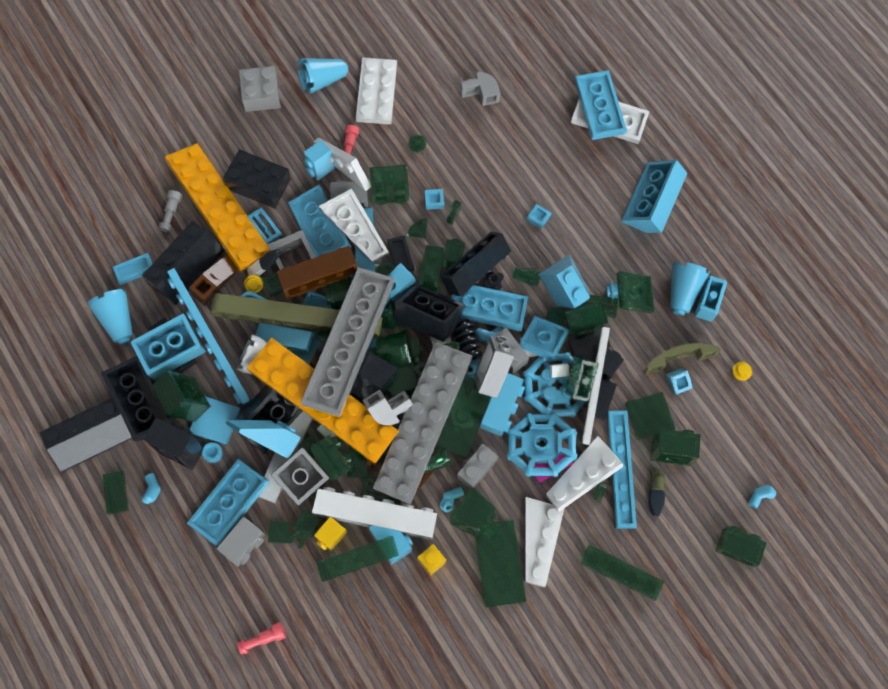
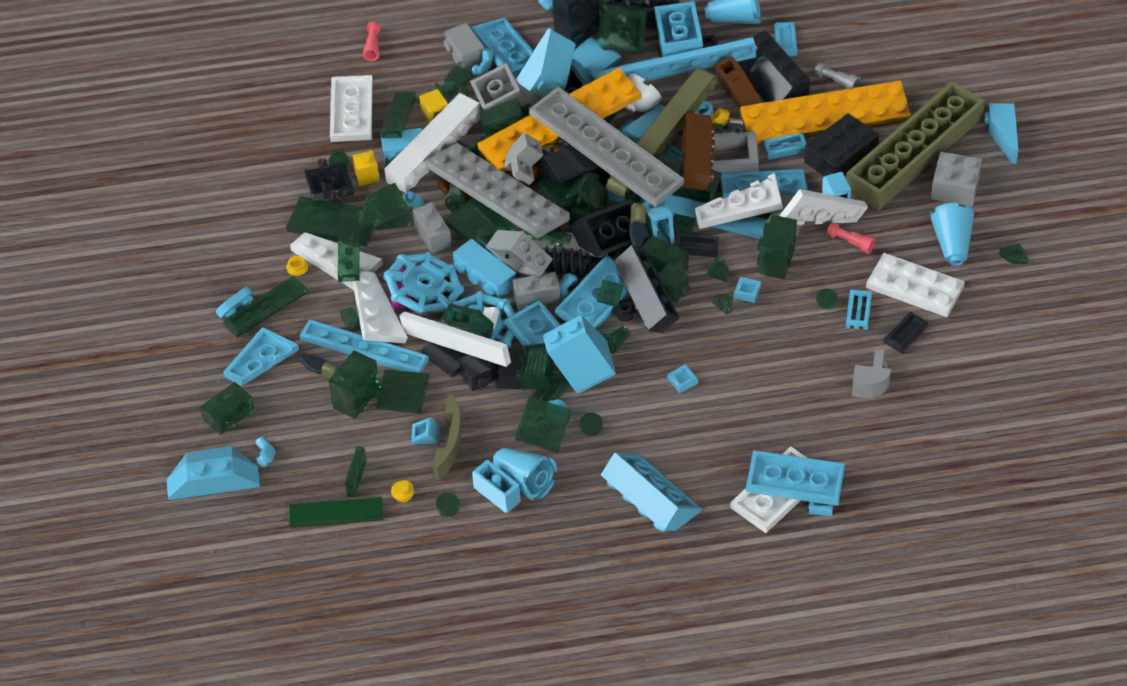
camera: 120 degrees right, 20 degrees down
(191, 72) = (1002, 128): none -> medium azure slope
(235, 124) = (915, 145): none -> olive brick
(255, 512) = (485, 65): none -> medium azure arm
(318, 36) = (1014, 254): none -> clear green tile
(358, 614) = (351, 108): none -> white plate
(414, 289) = (637, 227): none -> piece
(417, 123) = (857, 322): none -> medium azure tile
(425, 83) = (906, 332): none -> black tile
(427, 601) = (338, 158): none -> clear green plate
(462, 585) = (329, 182): none -> black plate
(489, 291) = (610, 293): none -> clear green plate
(539, 522) = (348, 251): none -> clear green tile
(564, 568) = (297, 266): none -> yellow plate
(612, 263) = (591, 424): none -> clear green tile
(629, 599) = (238, 300): none -> medium azure plate
(673, 550) = (258, 356): none -> medium azure wing
(735, 334) = (447, 504): none -> clear green tile
(746, 412) = (355, 471): none -> clear green tile
(785, 413) = (336, 512): none -> dark green tile
(805, 526) = (212, 473): none -> medium azure wedge

